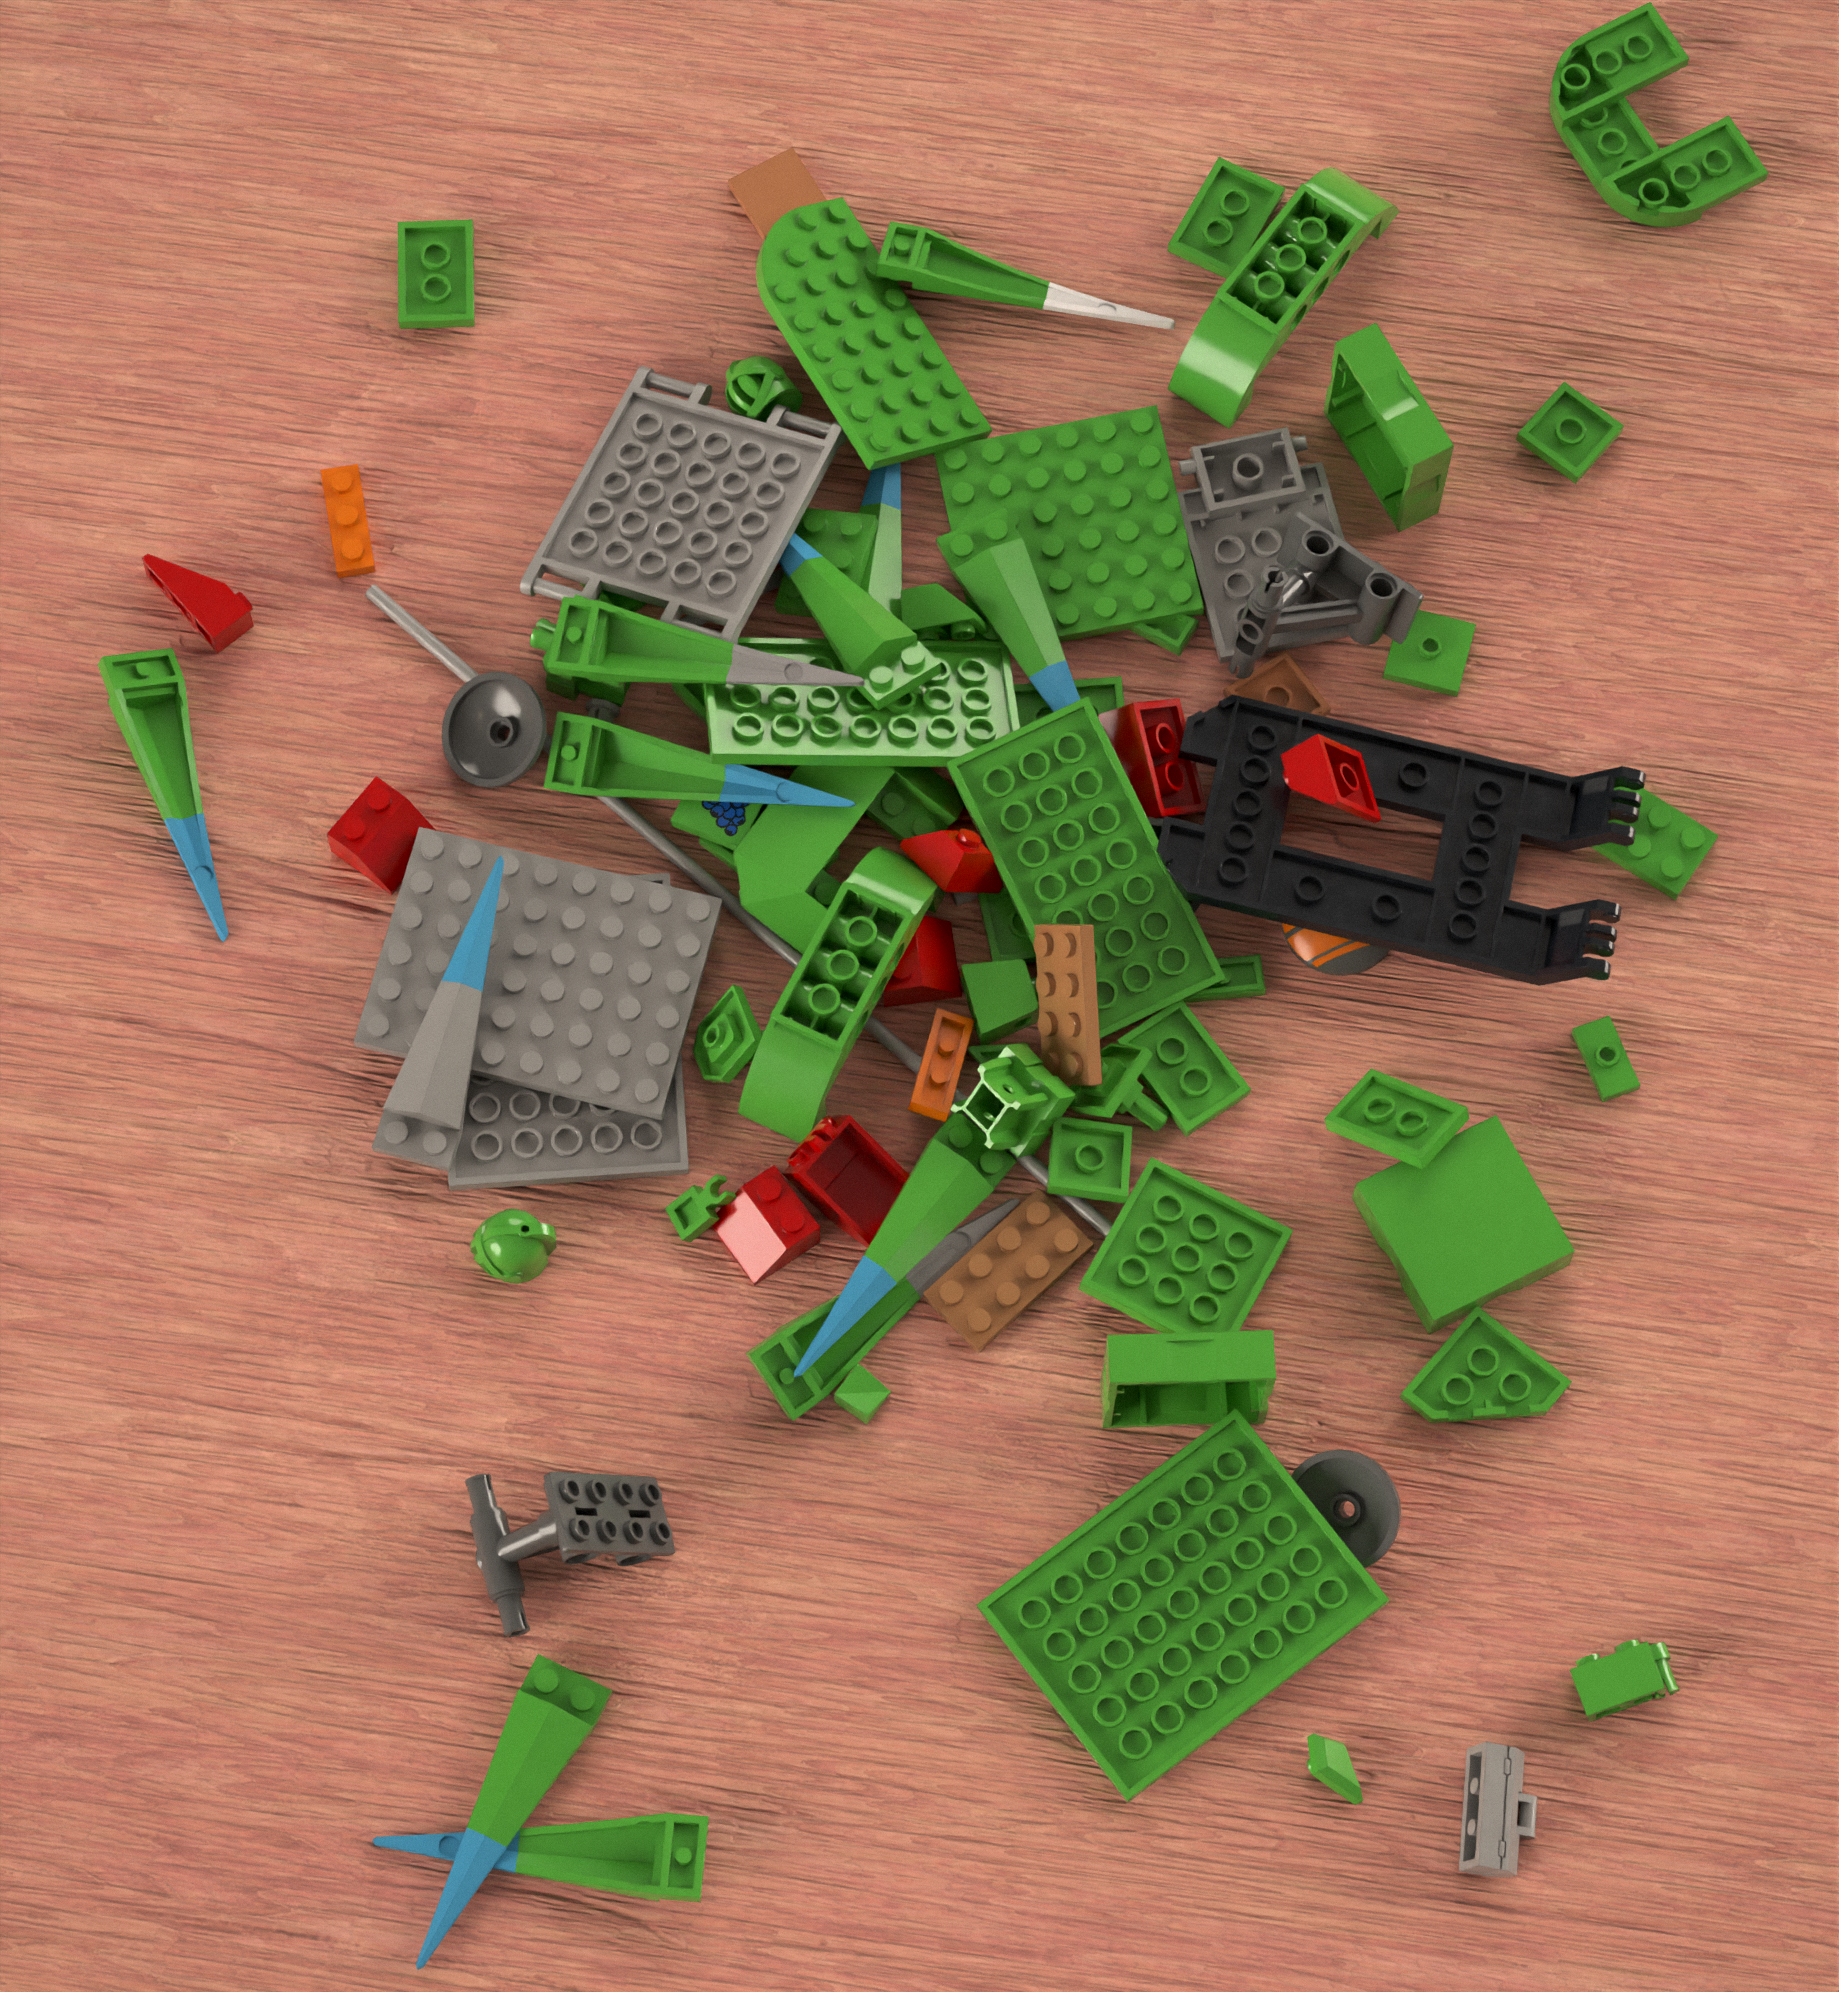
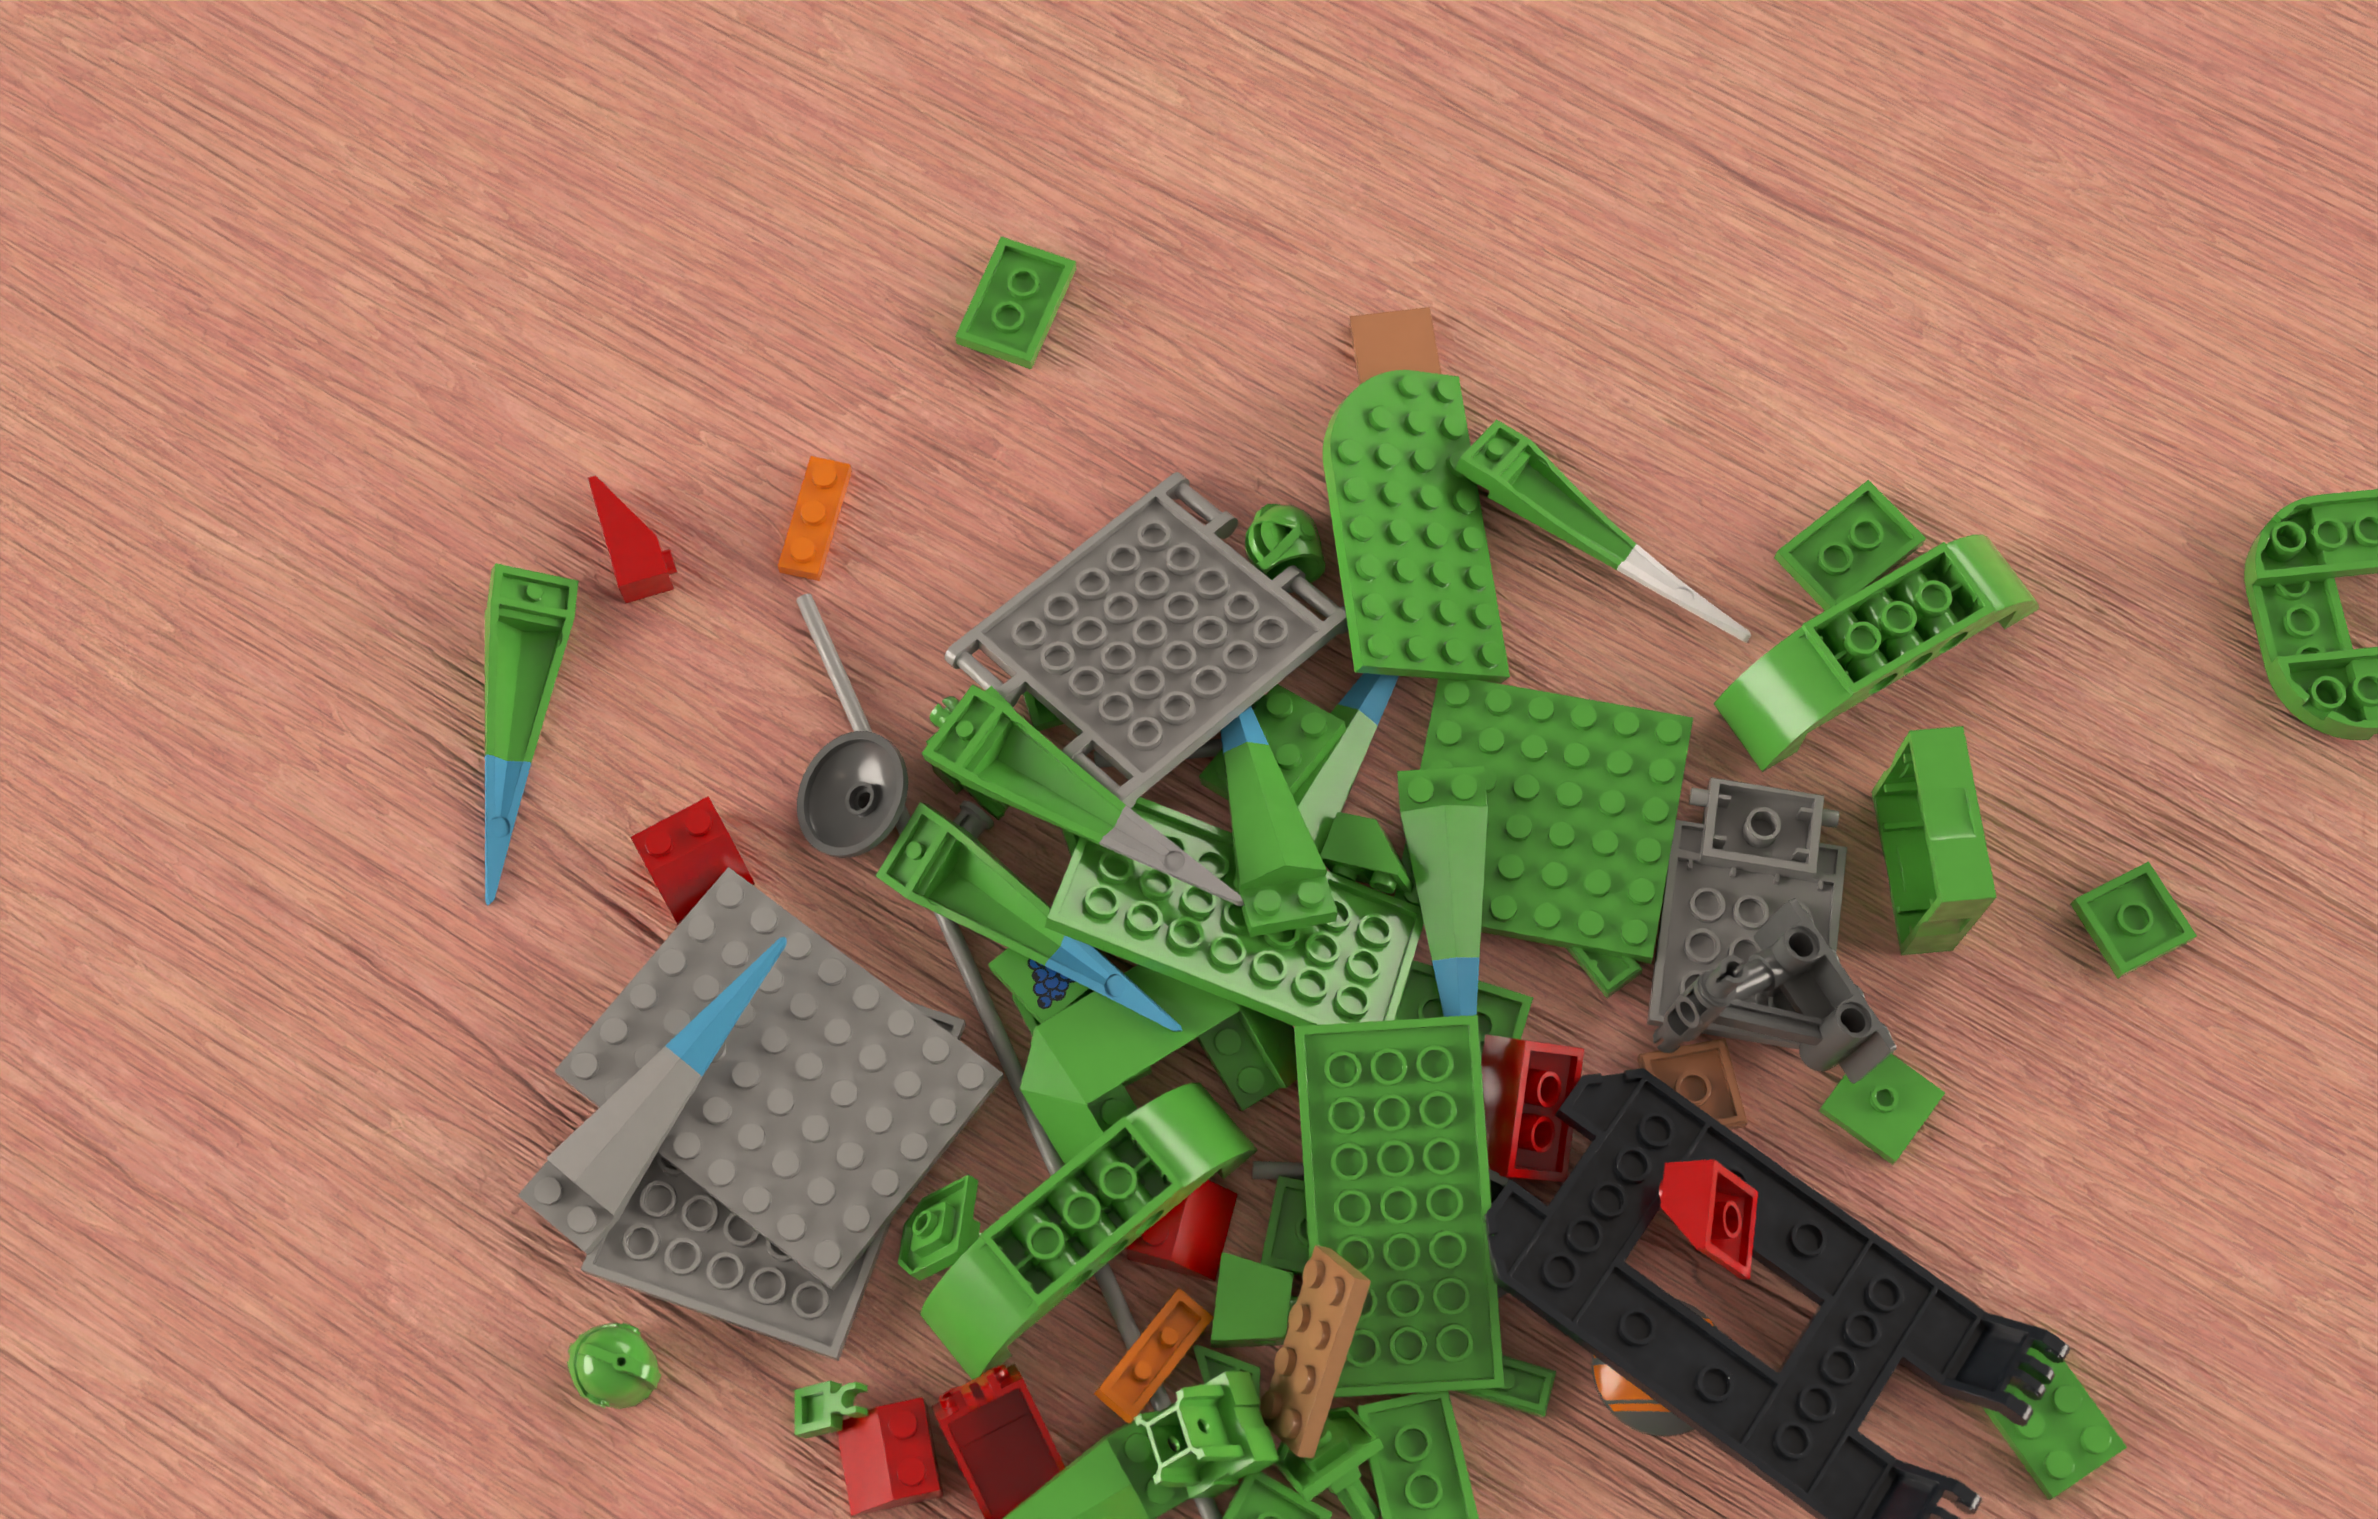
camera: 25 degrees right, 0 degrees up
(955, 861) = (1260, 1137): red slope -> none

